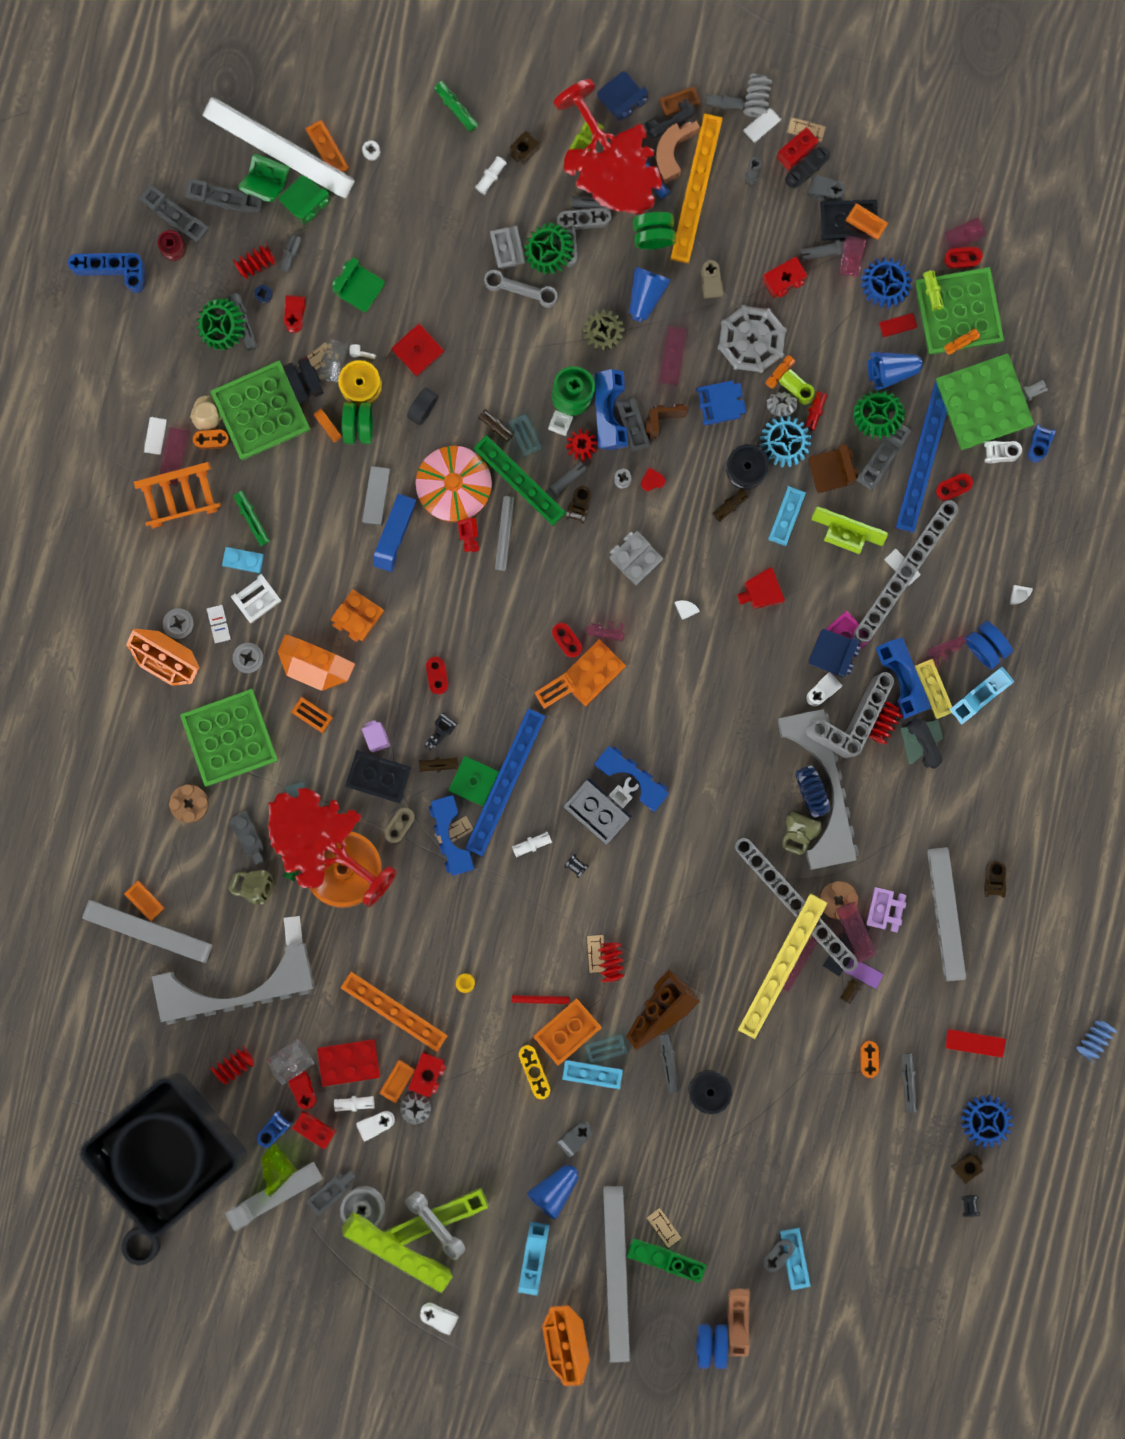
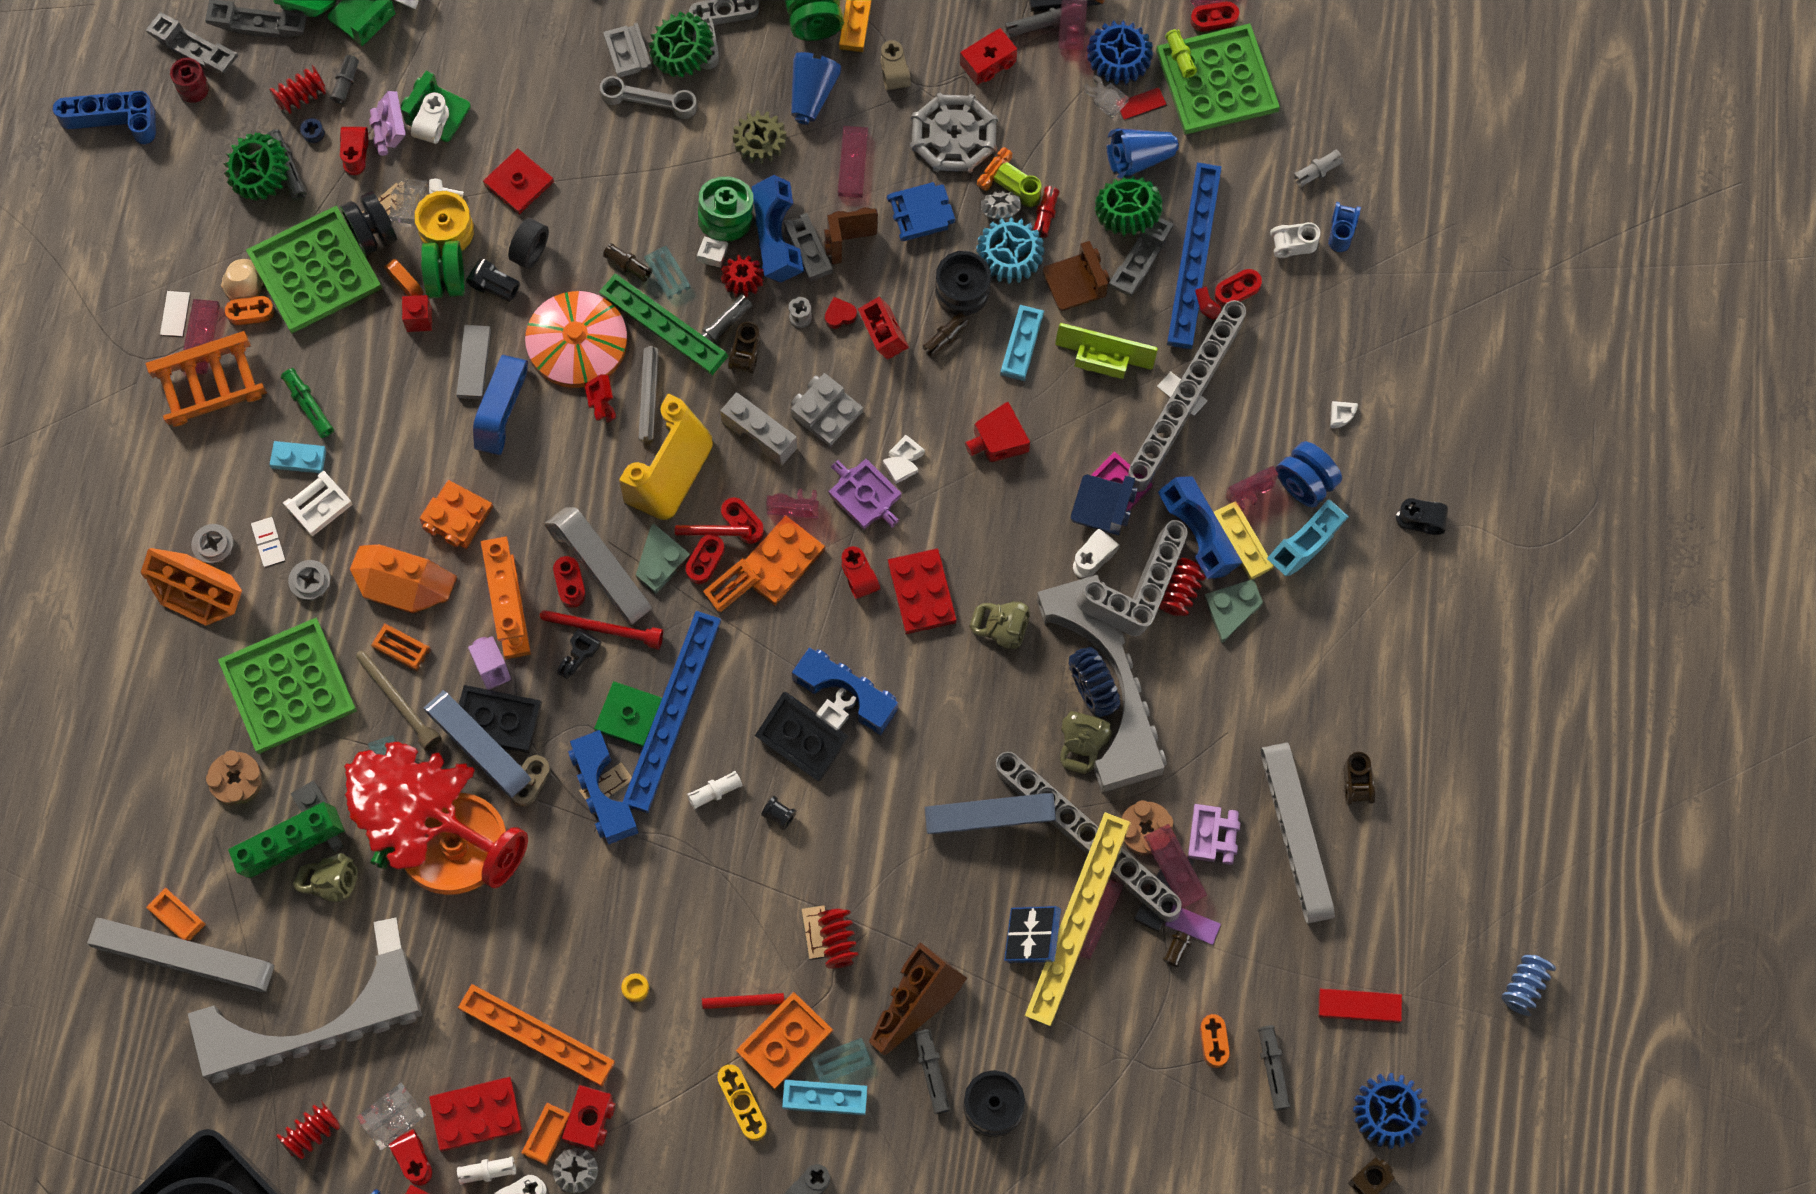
camera: 10 degrees left, 15 degrees down
(224, 856) = (286, 840): none -> green brick
(321, 295) = (387, 123): none -> lavender plate
(328, 785) = (427, 737): none -> dark tan piece
(336, 454) = (417, 313): none -> red brick
(352, 298) = (430, 119): none -> white piece
(364, 798) = (477, 744): none -> sand blue beam
(389, 429) = (487, 278): none -> black piece
(390, 689) = (505, 597): none -> orange fence
(450, 763) = (595, 693): dark brown pin -> none
(458, 666) = (574, 529): none -> light grey beam
(494, 724) = (651, 637): none -> red piece
(504, 664) = (660, 559): none -> sand green wing
(522, 595) = (665, 483): none -> yellow windscreen
(537, 668) = (704, 560): none -> red plate
(545, 647) = (718, 530): none -> red bar
(585, 570) = (748, 419): none -> light grey arch
(649, 693) = (859, 576): none -> red piece
(658, 627) = (864, 494): none -> medium lavender plate
(684, 498) = (883, 328): none -> red brick
(692, 594) = (907, 449): none -> white tile
(693, 706) = (921, 591): none -> red plate
(727, 883) = (990, 813): none -> sand blue beam
(749, 973) = (1032, 934): none -> black tile
(752, 737) = (1005, 623): none -> olive piece
(873, 319) = (1107, 98): none -> clear plate
(928, 500) = (1207, 306): none -> red arm
(932, 756) = (1252, 625): black piece -> none
(962, 341) = (1225, 110): orange axle -> none
(984, 402) = (1264, 180): bright green plate -> none
(1072, 682) = (1423, 517): none -> black piece

